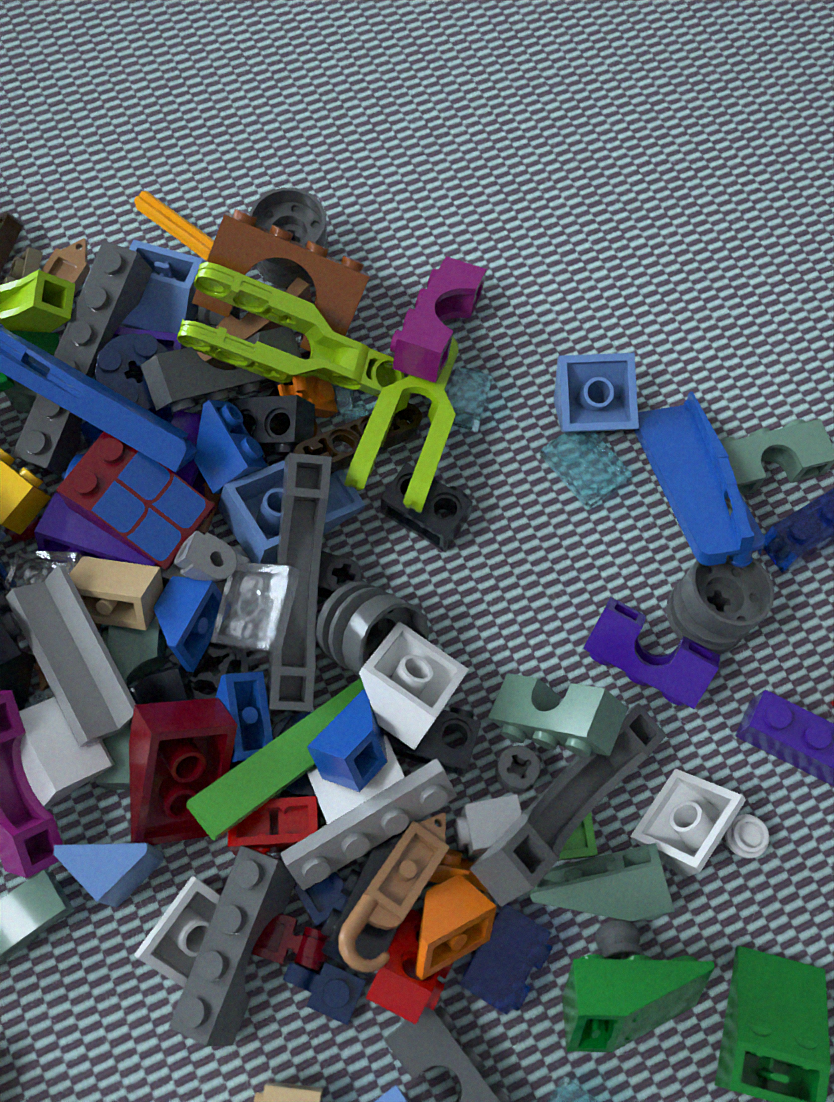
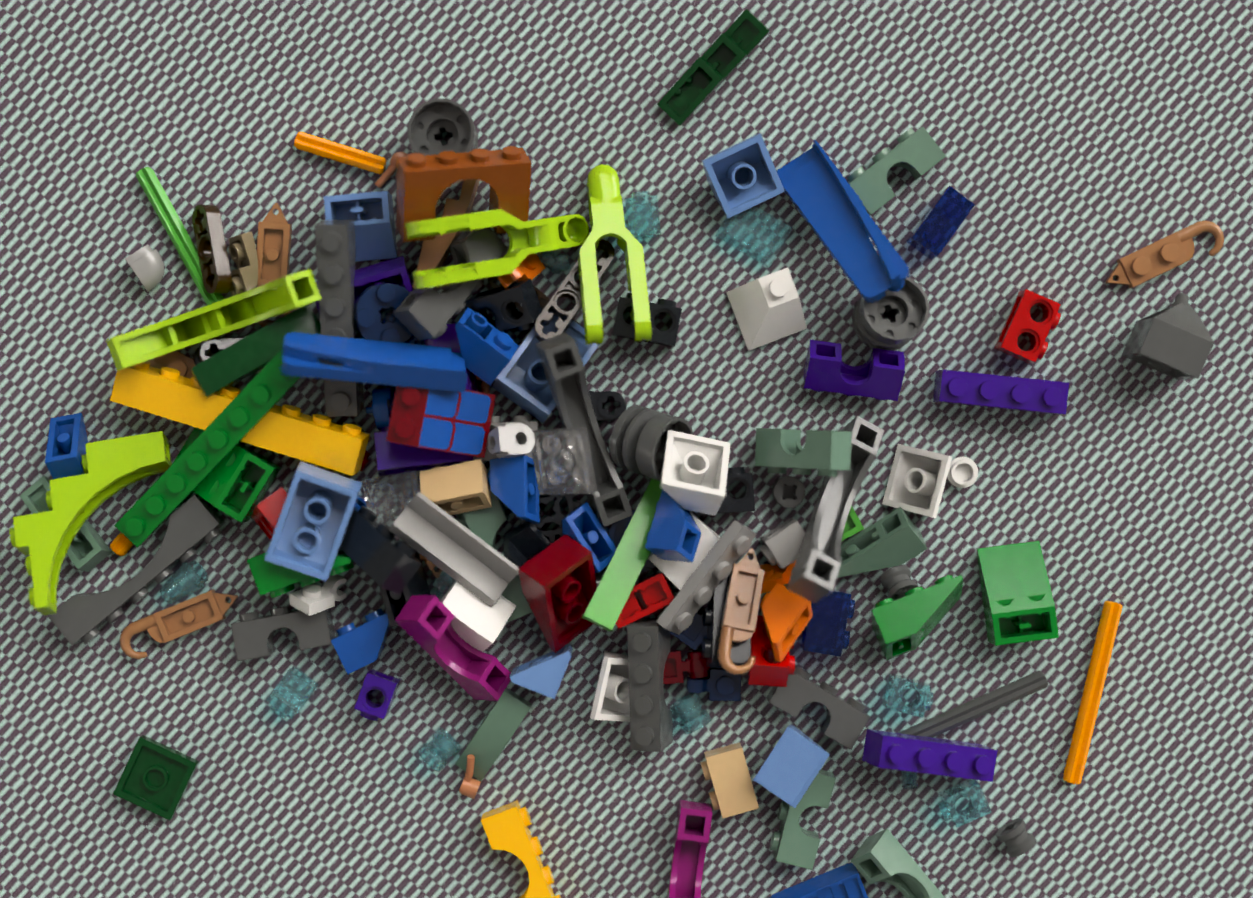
camera: 20 degrees left, 20 degrees up
(273, 1012) = (690, 711): none -> clear light blue wheel
(425, 341) = (594, 129): magenta arch -> none
(573, 547) = (767, 309): none -> white slope
(603, 290) = (713, 67): none -> dark green slope

